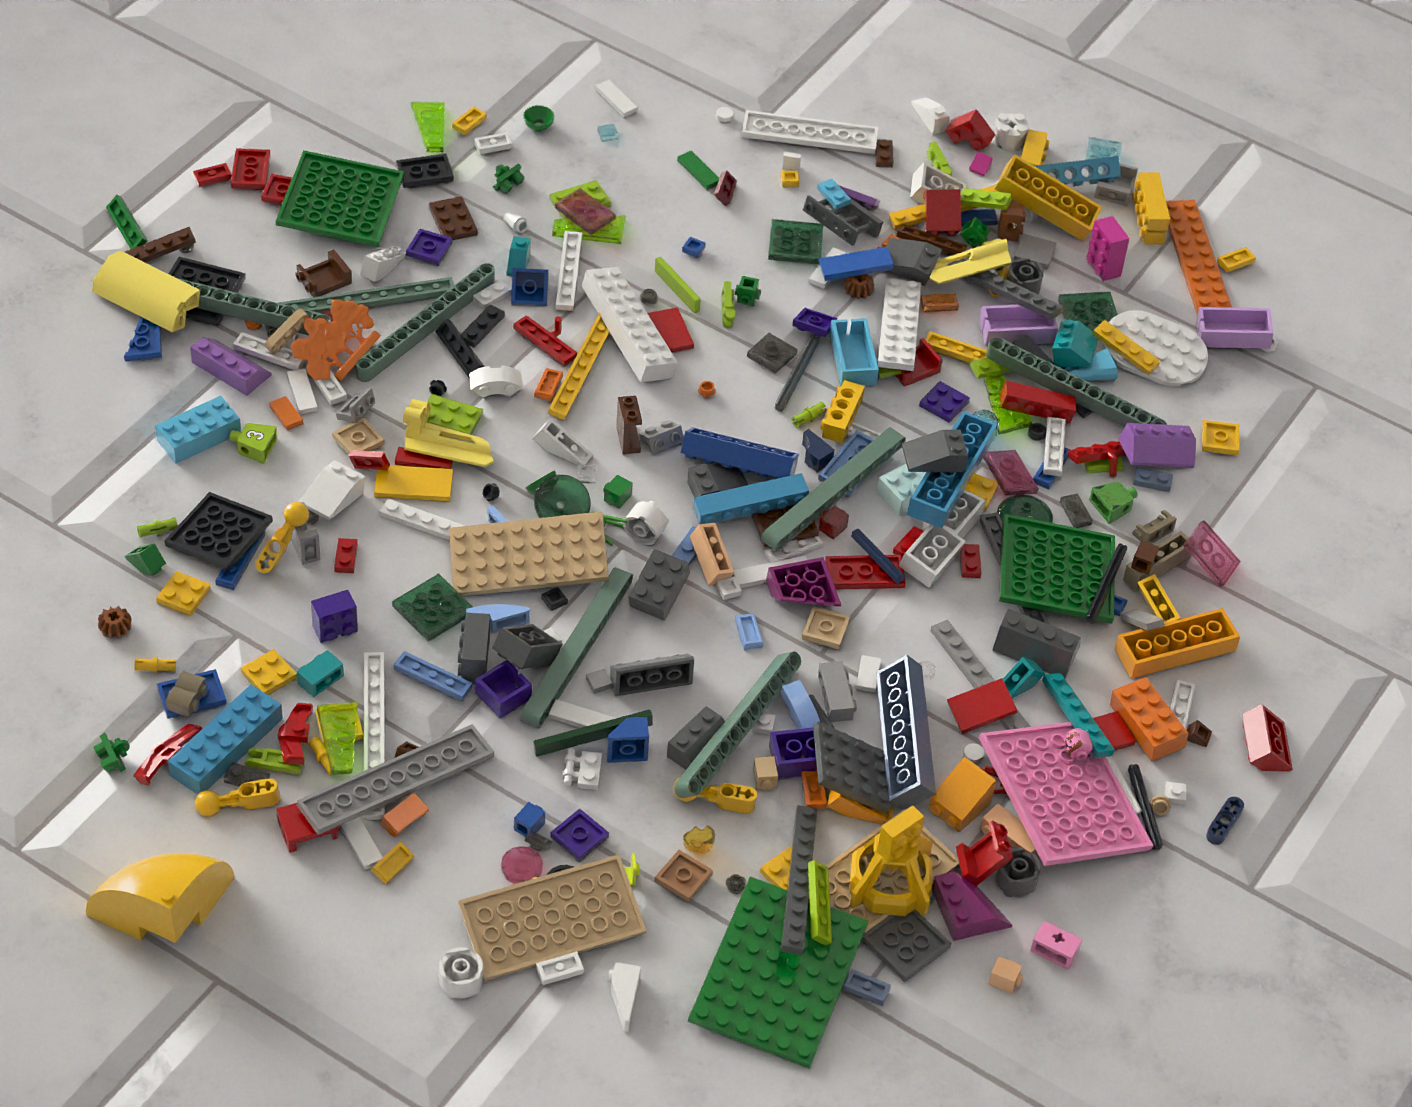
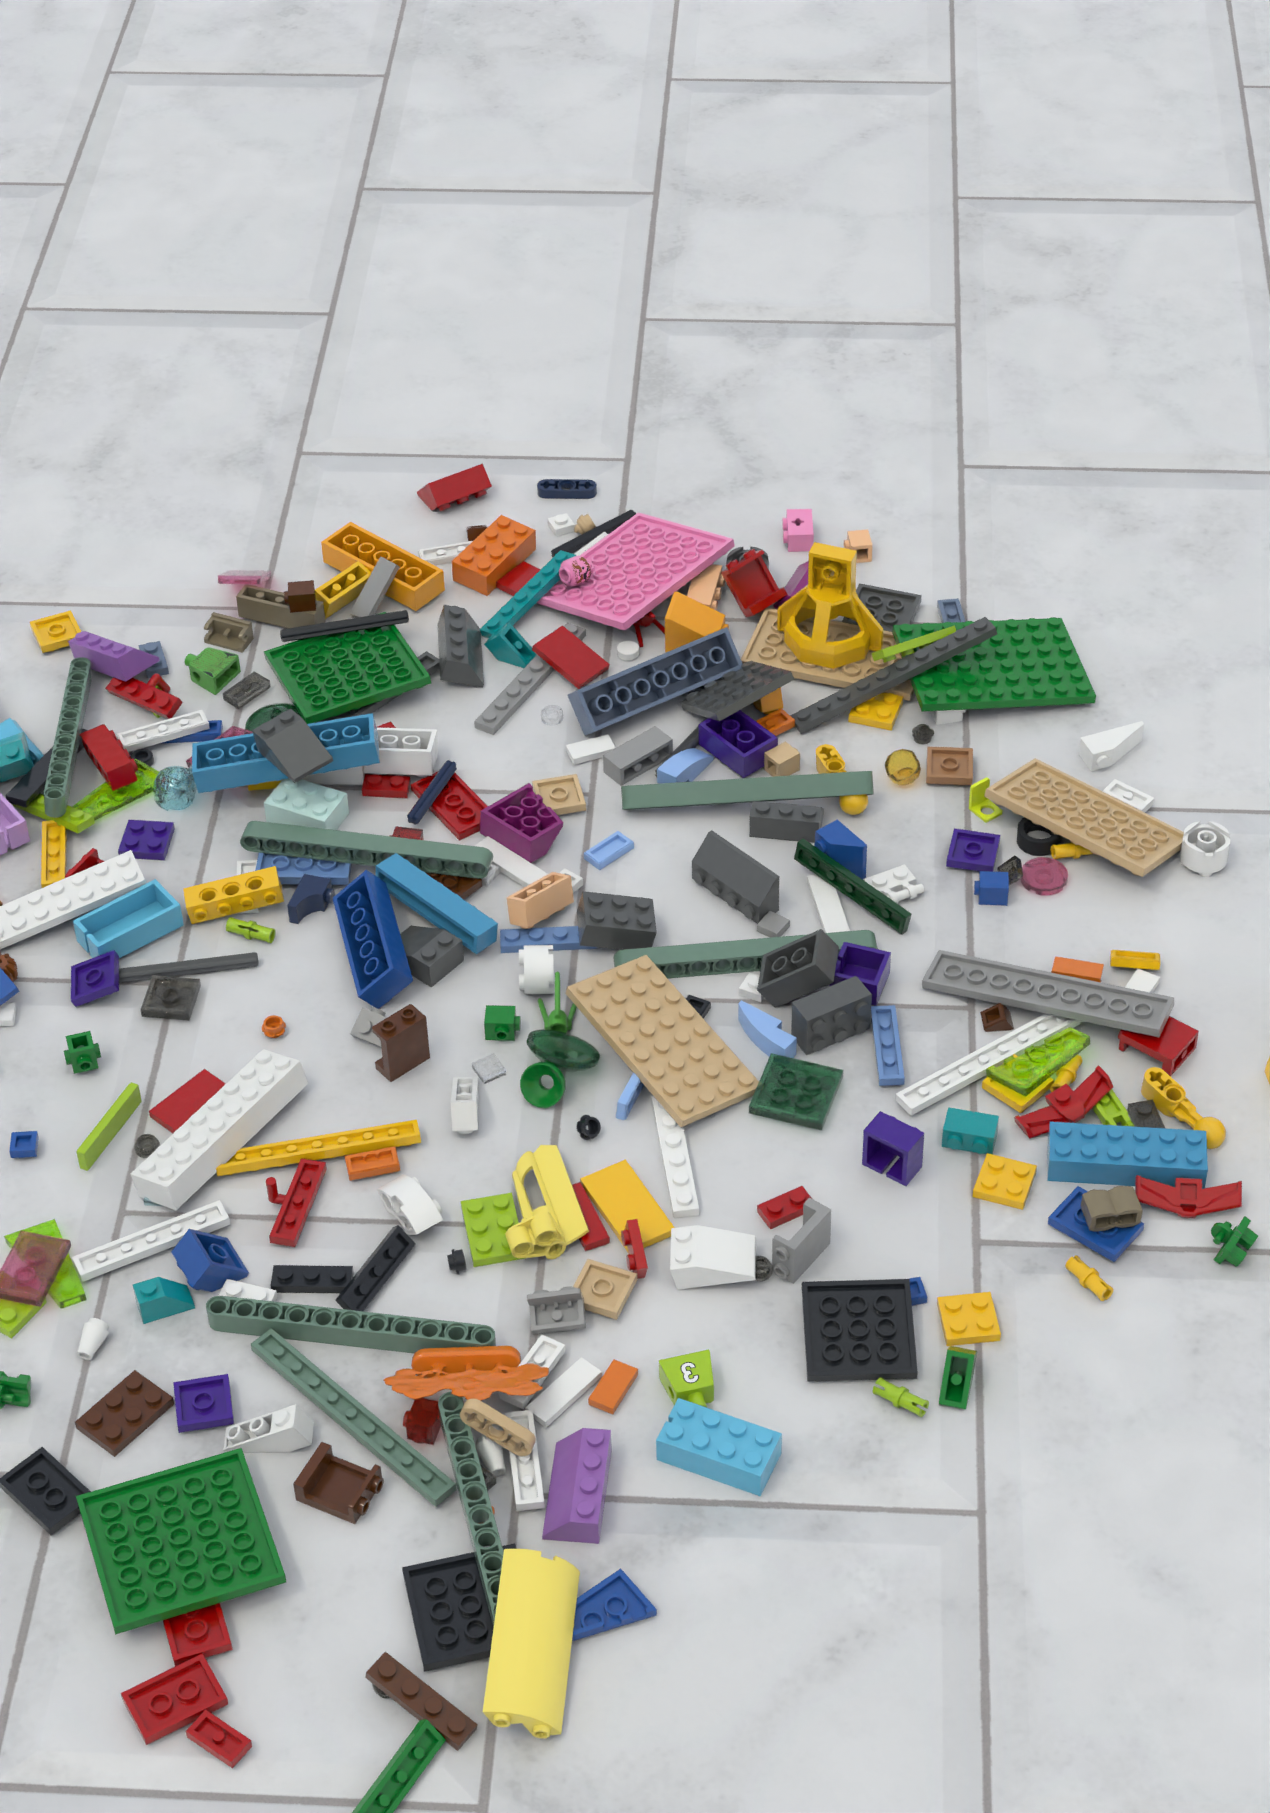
camera: 115 degrees left, 5 degrees down
(114, 622) = (1070, 1346): dark orange gear -> none
(296, 515) = (846, 1243): yellow beam -> none
(728, 306) = (114, 1067): lime hinge -> none

